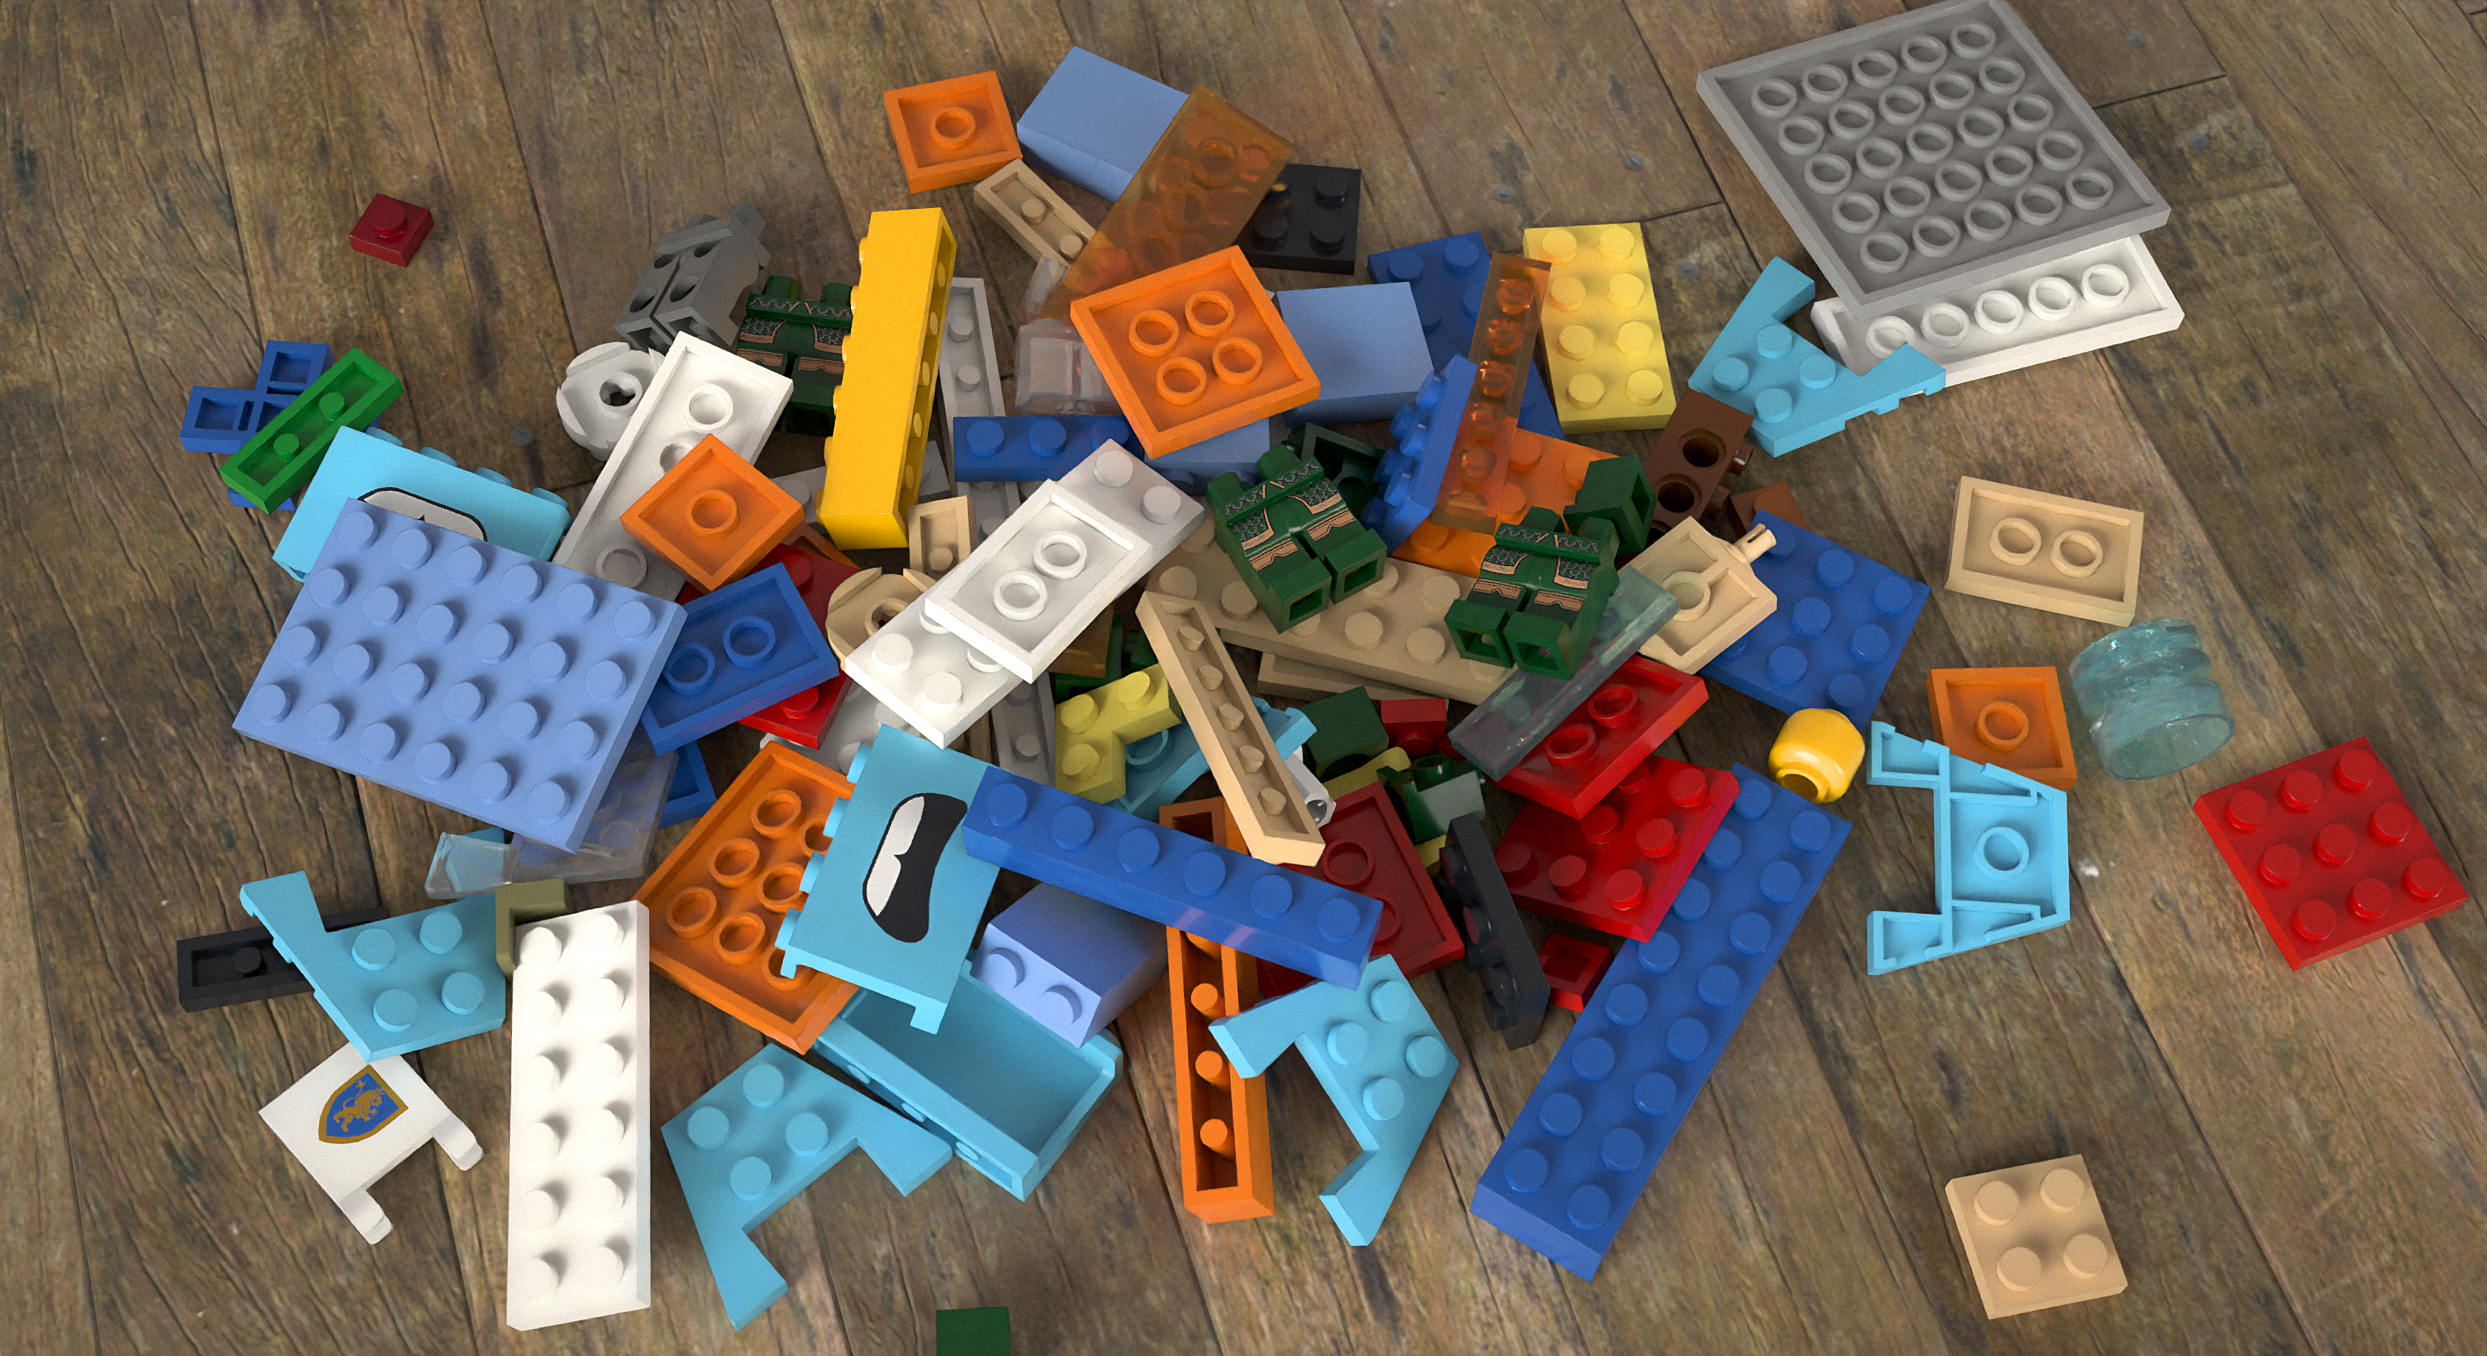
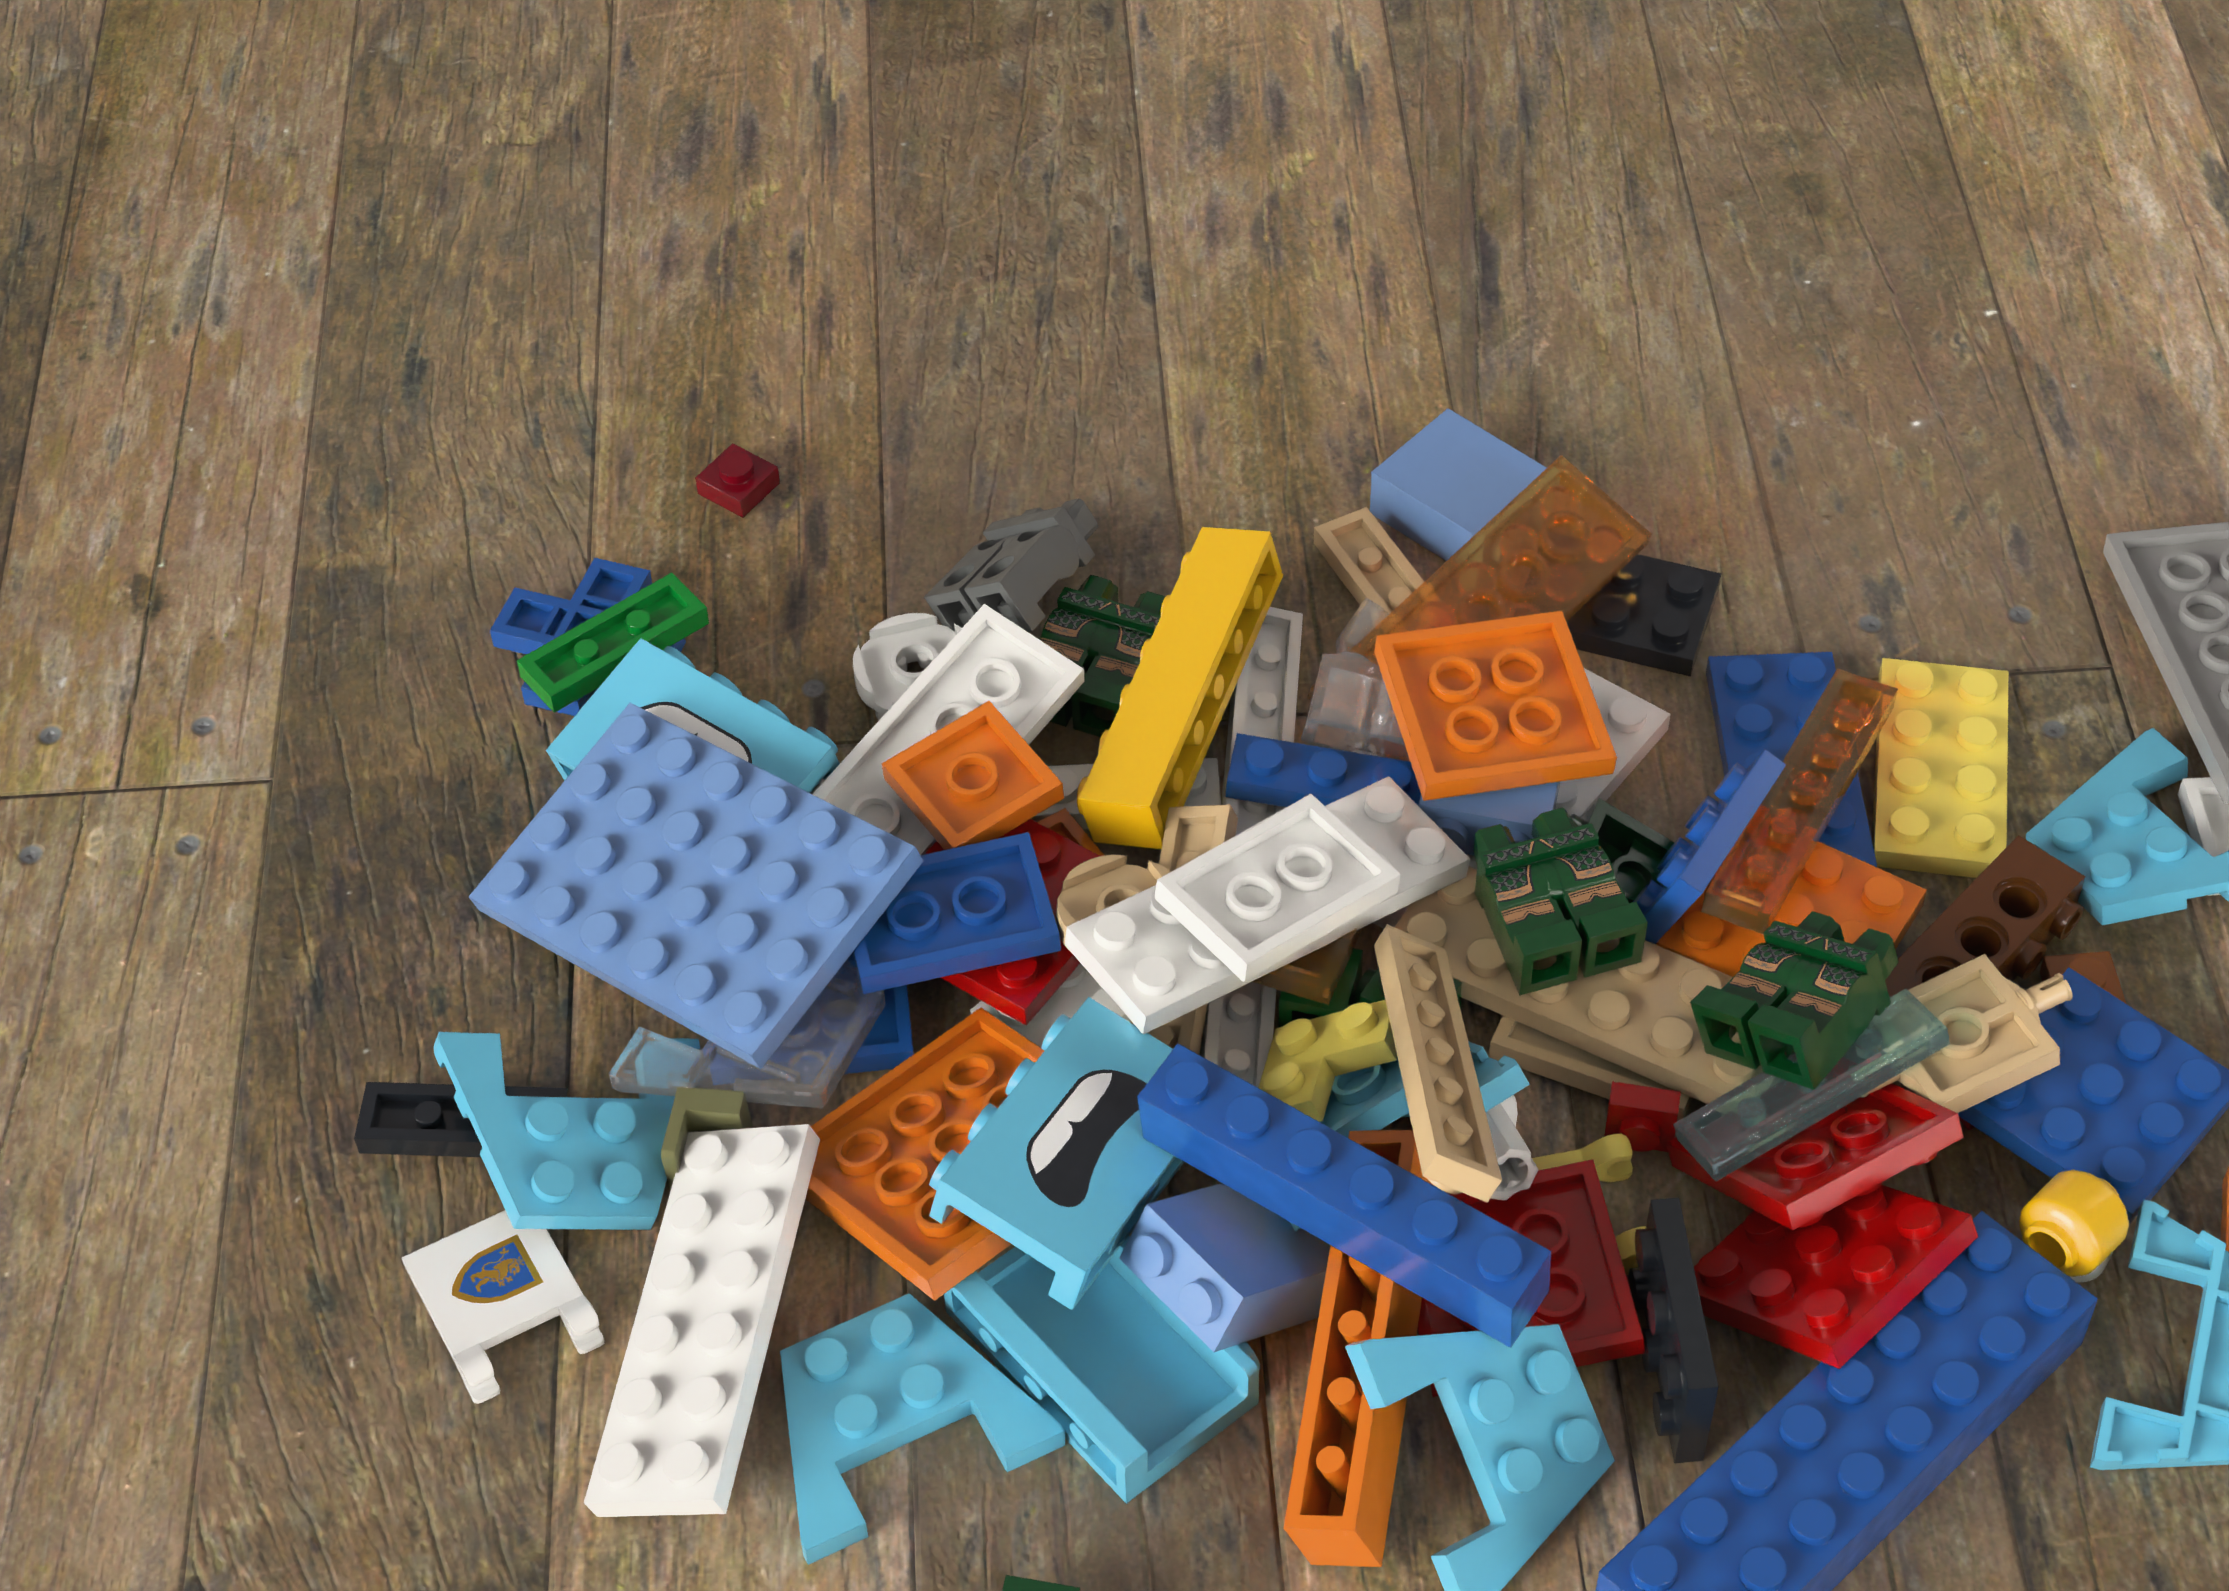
camera: 20 degrees right, 10 degrees down
(951, 131) = (1306, 472): orange plate -> none
(1346, 734) = (1562, 1109): dark green brick -> none
(1361, 348) = (1669, 737): medium blue brick -> none
(1434, 793) = (1648, 1175): dark green brick -> none
(1573, 969) = (1751, 1388): red plate -> none
(1616, 492) = (1916, 922): dark green brick -> none

